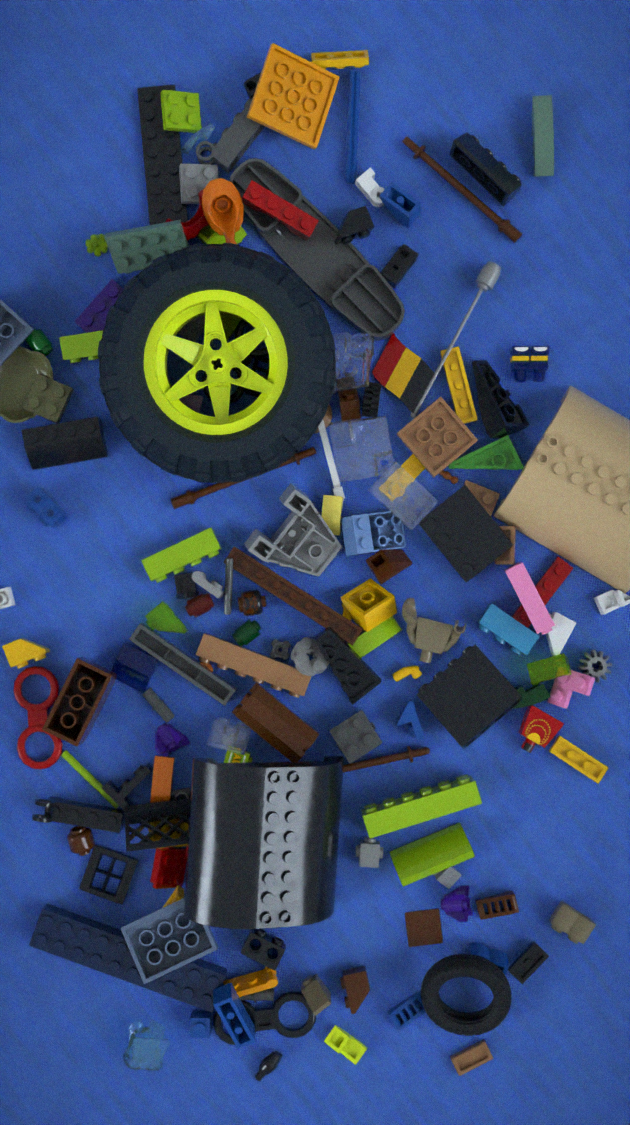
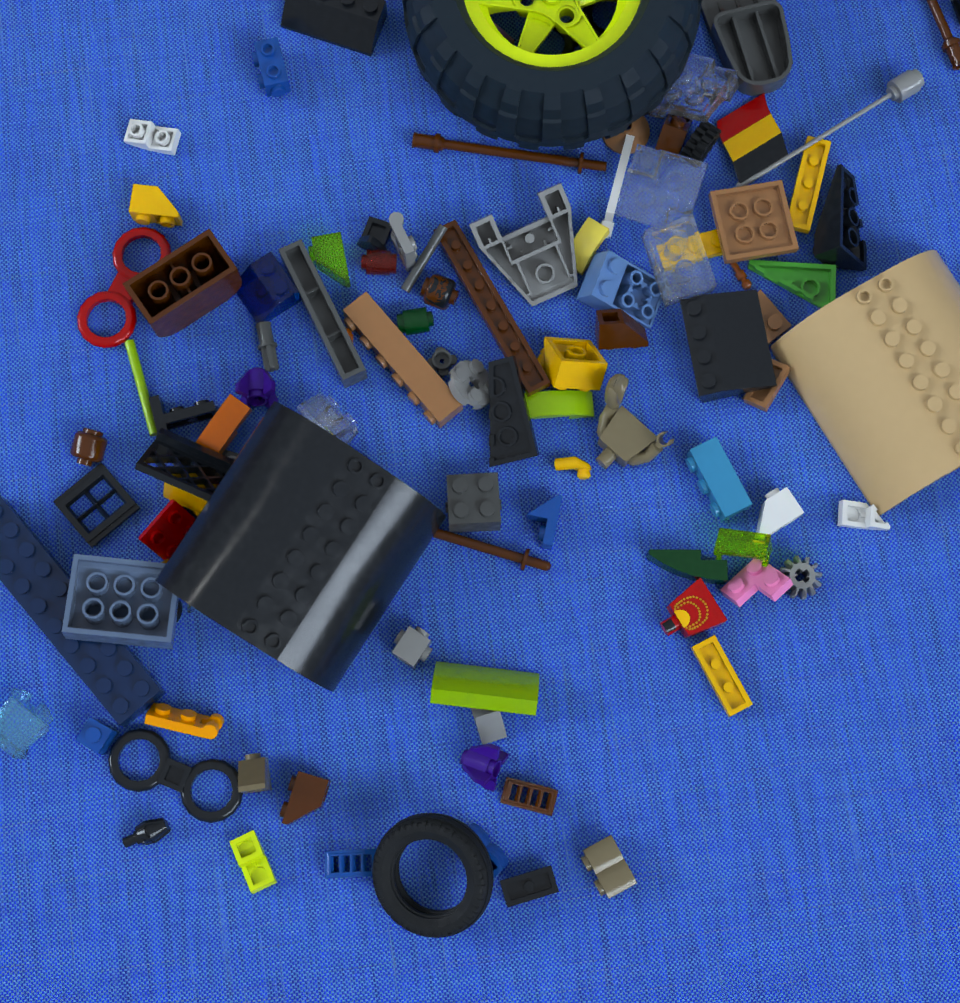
camera: 25 degrees right, 10 degrees down
(80, 814) = (105, 415): black hinge -> none
(182, 554) = (384, 196): lime brick -> none
(234, 1015) = (142, 740): blue brick -> none
(260, 952) = (218, 692): black brick -> none
(265, 995) = (183, 741): dark grey axle -> none
(275, 723) = (389, 430): reddish brown brick -> none
(399, 265) = (812, 26): black hinge -> none
(421, 806) = (503, 621): lime brick -> none
(423, 927) = (426, 775): reddish brown sticker -> none
(469, 696) = (632, 527): black panel -> none
(471, 1057) = (395, 966): medium nougat tile -> none
(528, 359) = (908, 210): clear blue hips -> none
(530, 598) = (764, 450): bright pink slope -> none
(546, 587) = (784, 461): red plate -> none

